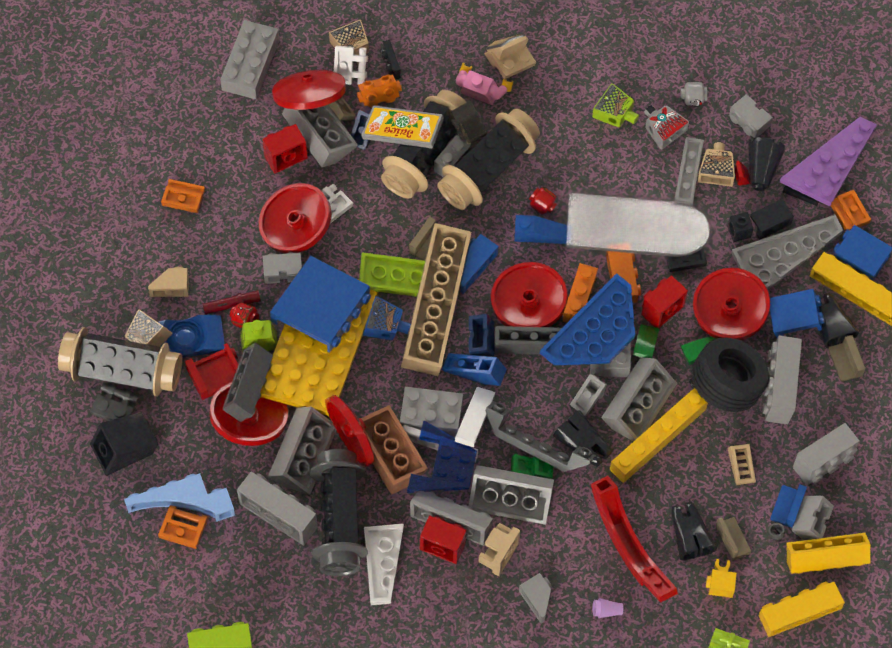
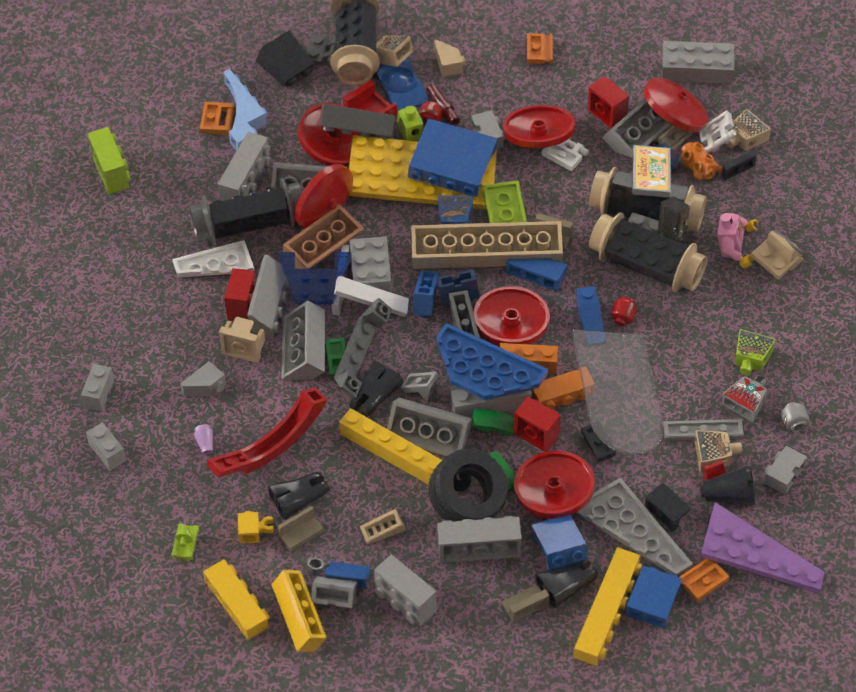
camera: 80 degrees right, 10 degrees down
(740, 227) = (647, 479): black brick -> none

